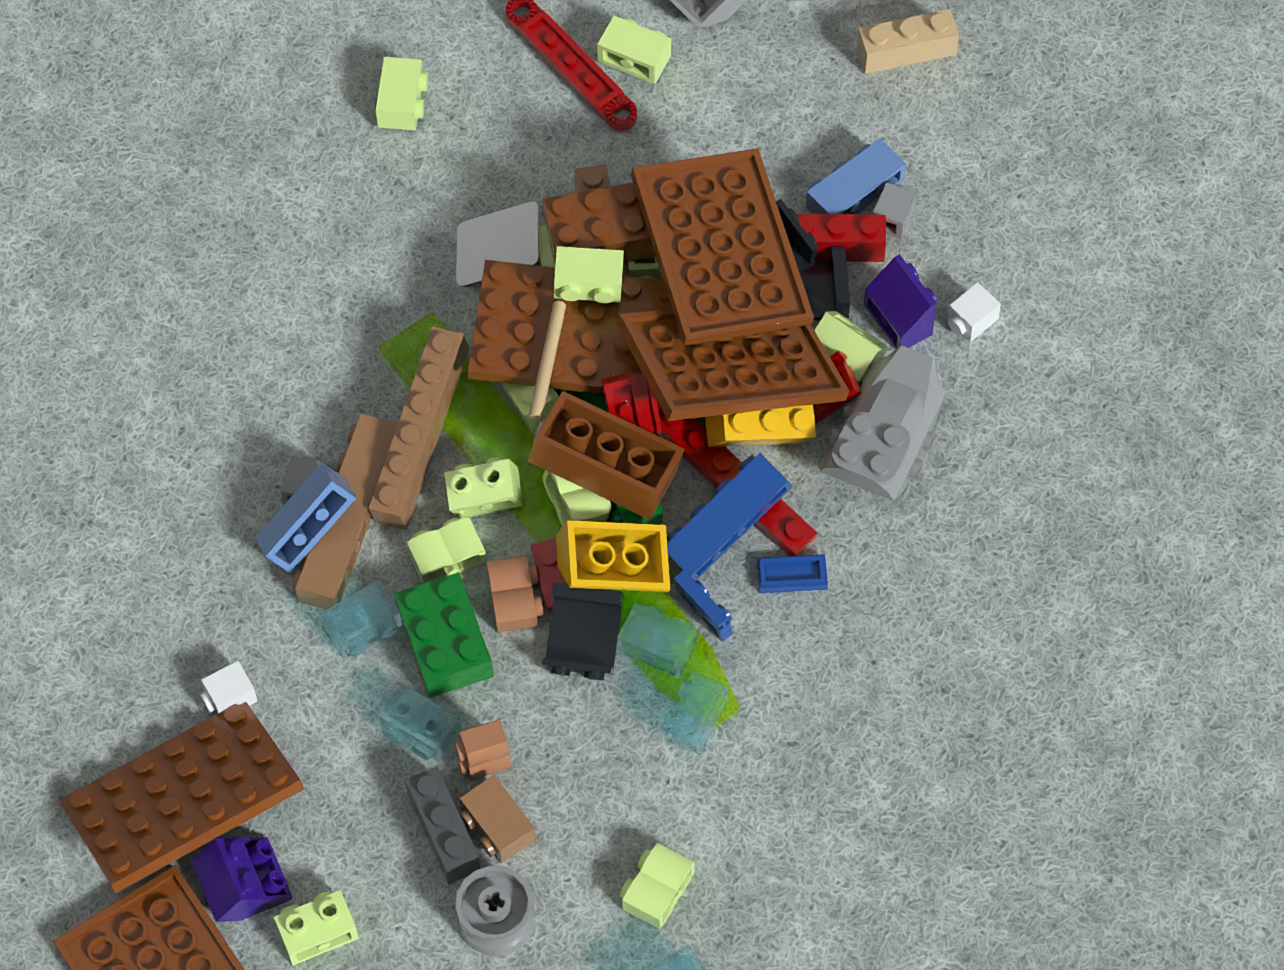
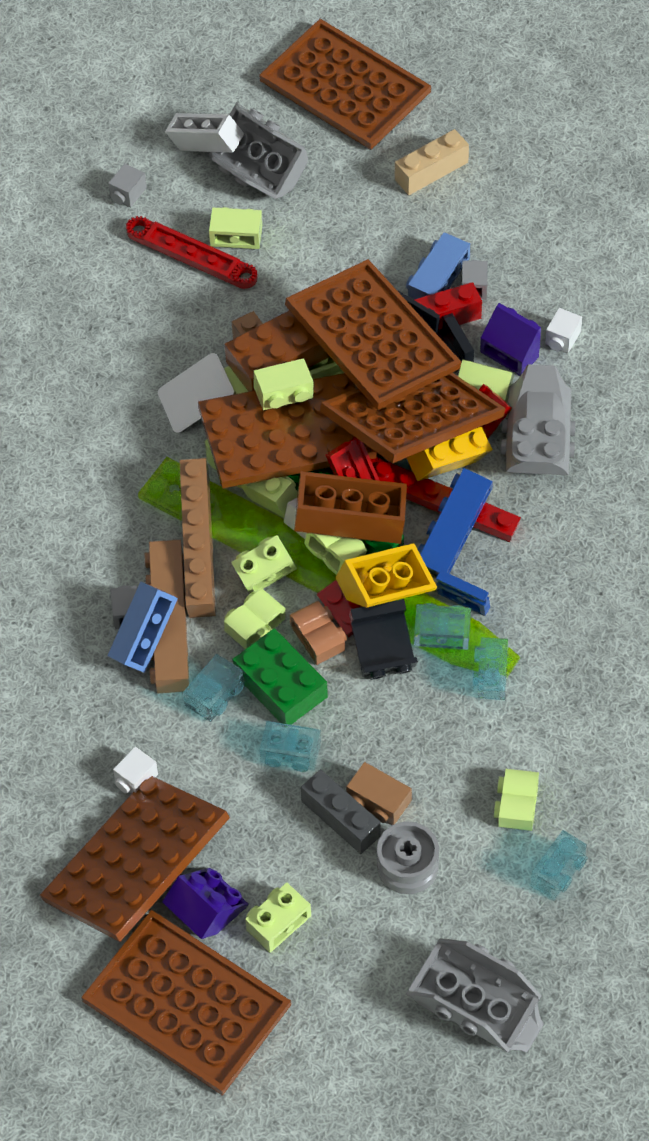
camera: 20 degrees left, 5 degrees down
(400, 93) = (75, 311): yellowish green brick -> none
(483, 750) = (349, 747): nougat brick -> none
(547, 361) = (279, 455): tan bar -> none
(792, 573) = (514, 552): blue tile -> none

